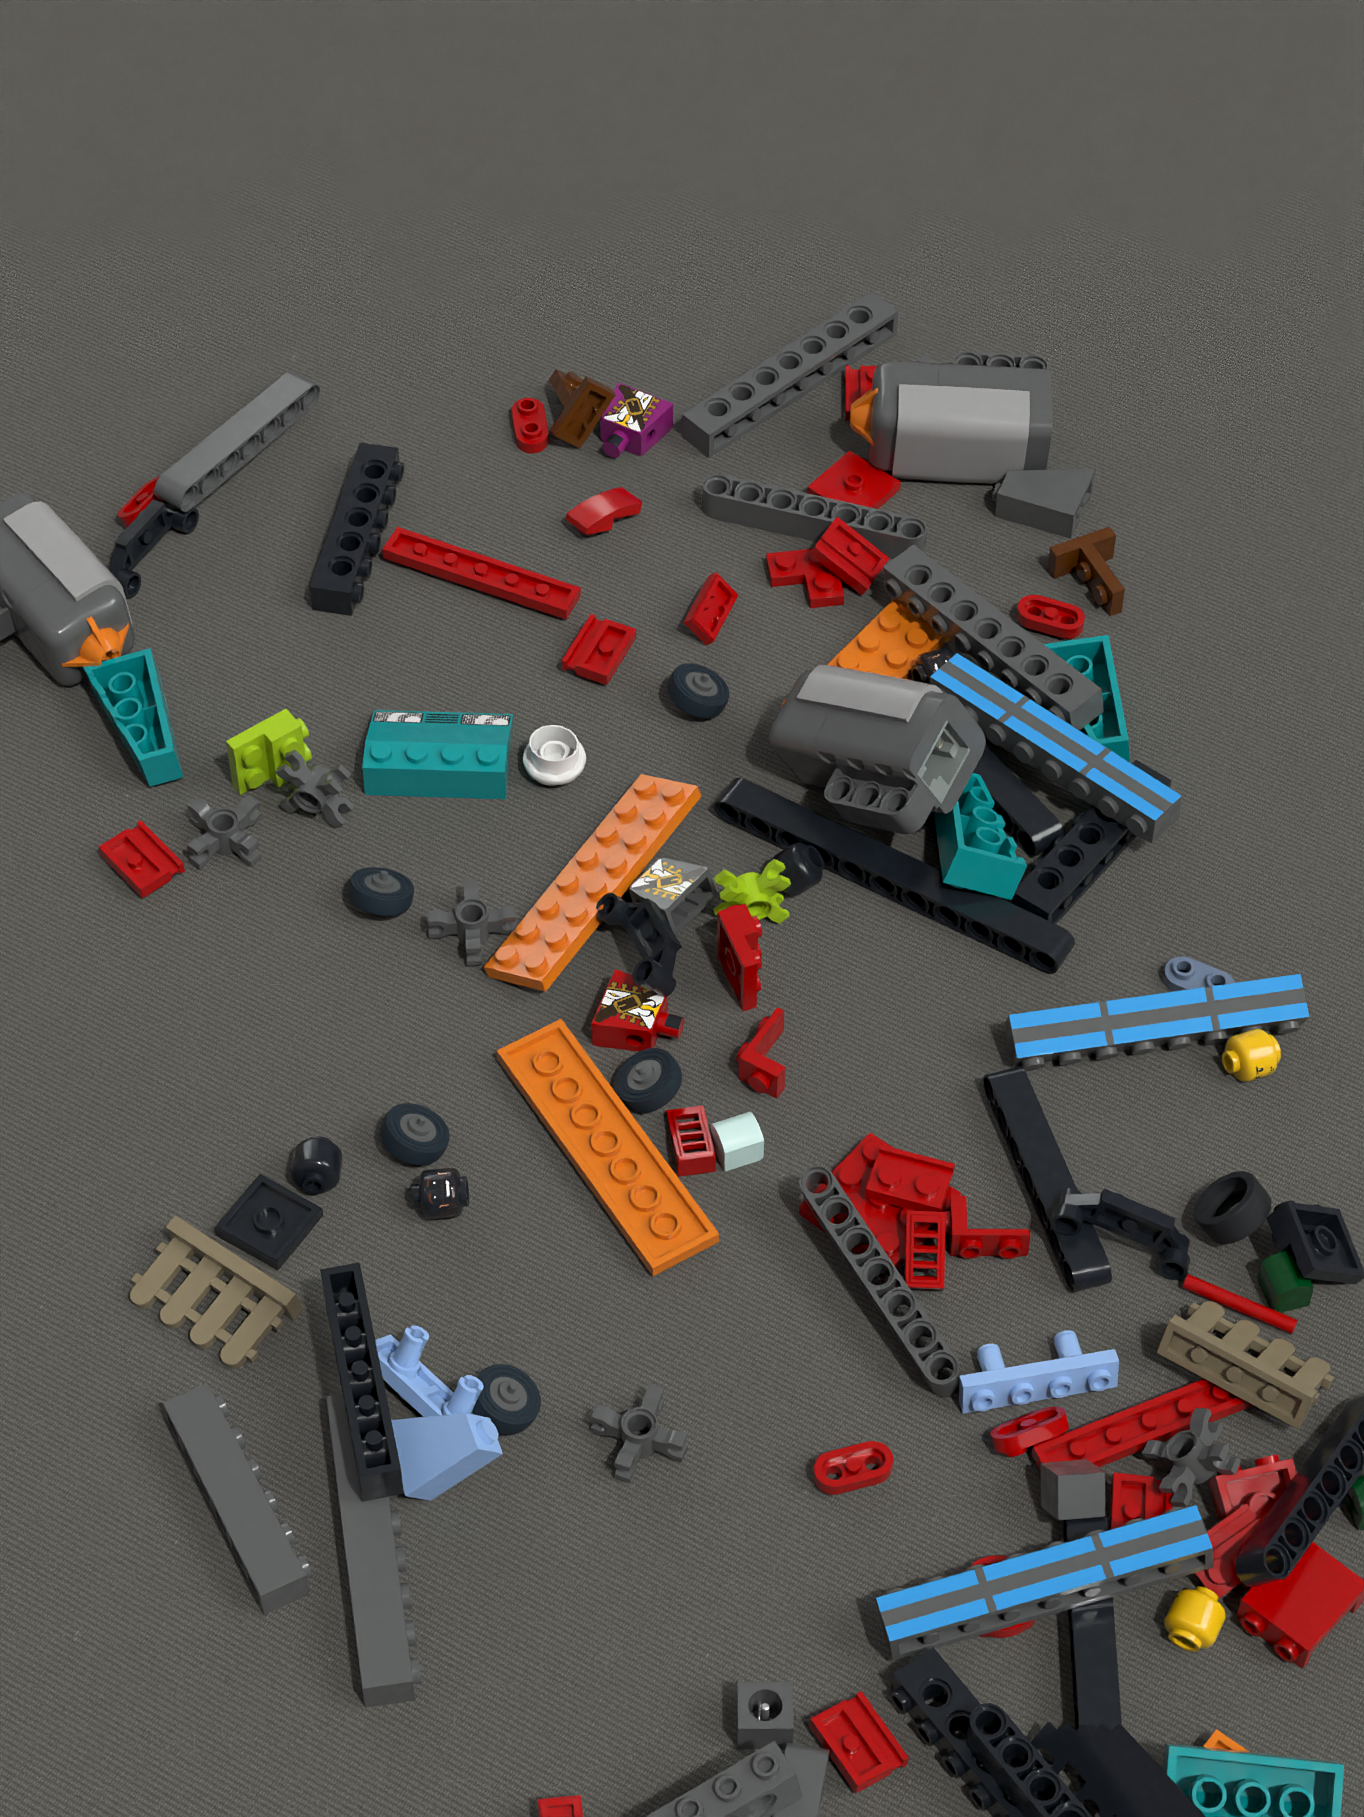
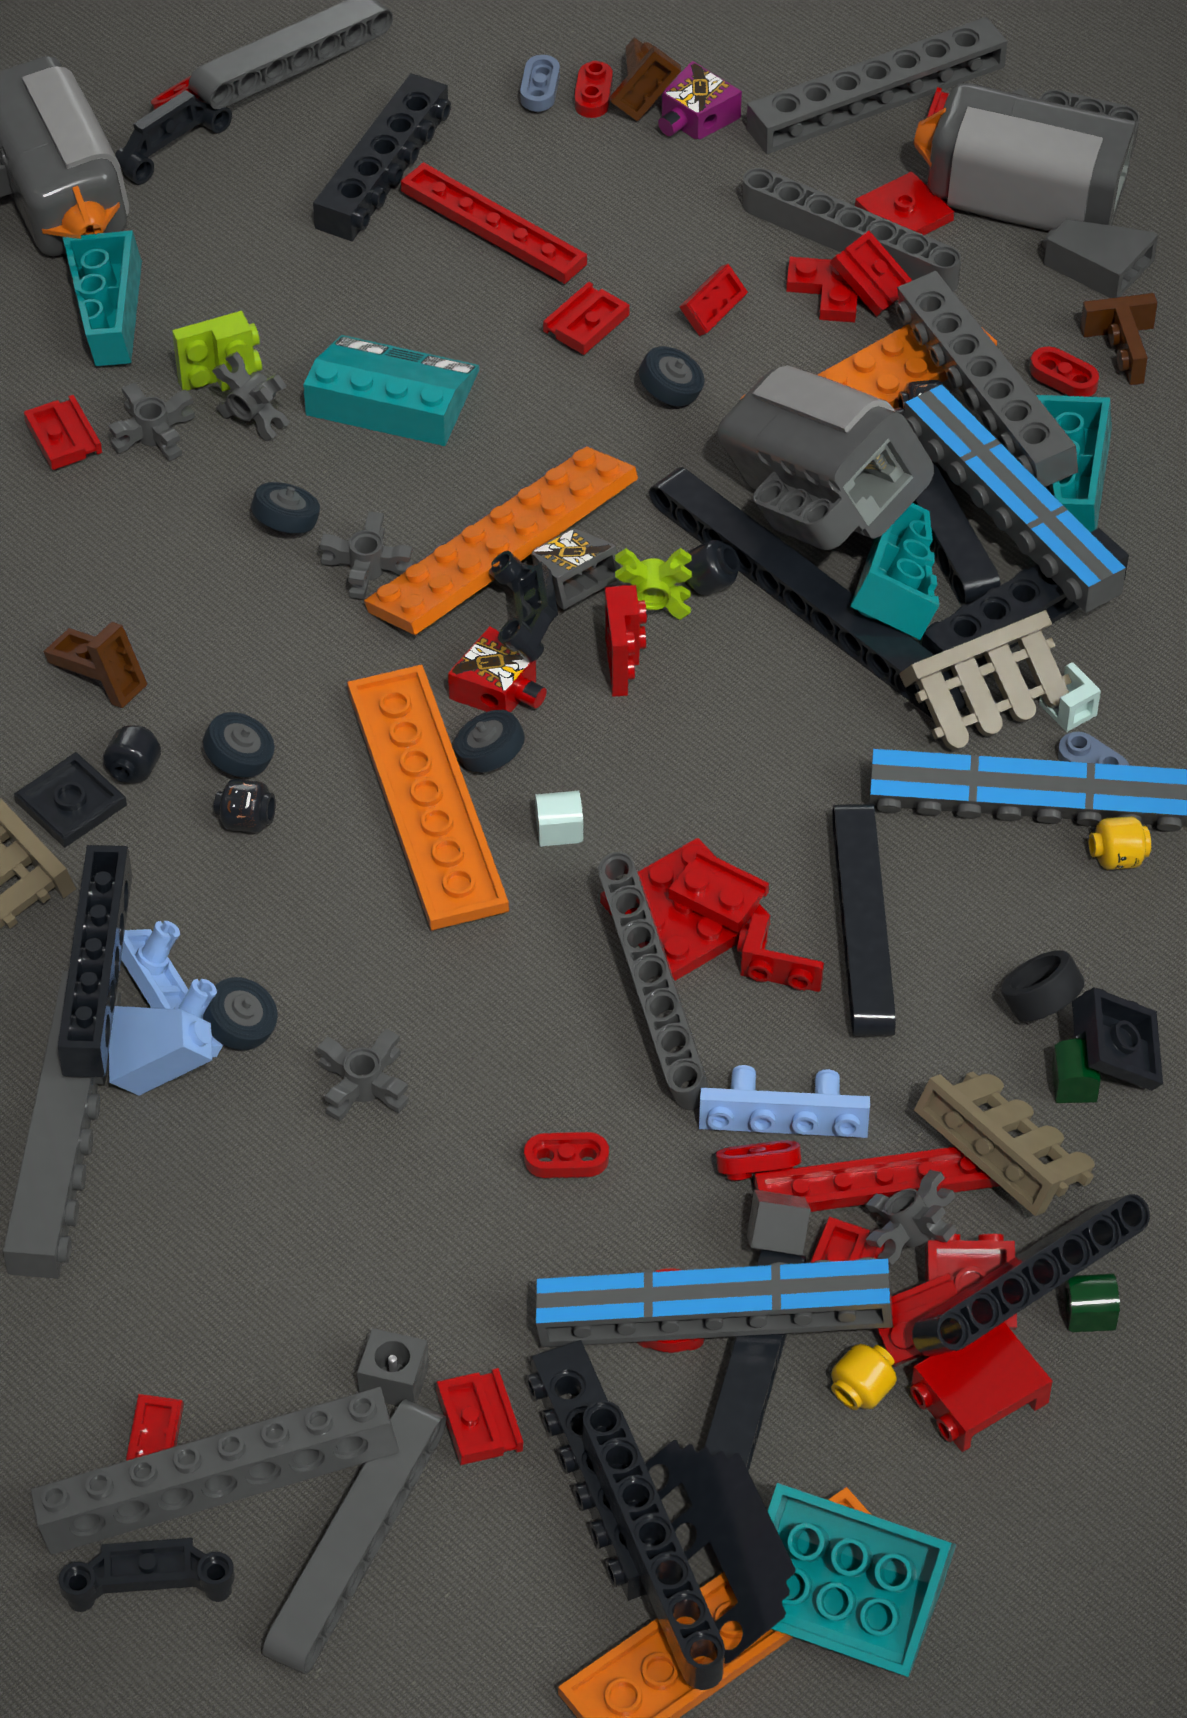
camera: 15 degrees right, 0 degrees up
(261, 1077) = (101, 657): none -> reddish brown bracket
(479, 428) = (540, 83): none -> sand blue plate
(554, 756) = (503, 411): white piece -> none
(600, 510) = (632, 184): red slope -> none
(692, 1162) = (509, 829): red slope -> none
(757, 1069) = (602, 741): red bracket -> none
(925, 1282) = (704, 994): red slope -> none
(1072, 931) = (970, 680): none -> fence
(1128, 1220) = (929, 975): black plate -> none
(1162, 926) = (1078, 704): none -> light aqua panel
(1240, 1304) = (1023, 1084): red bar -> none

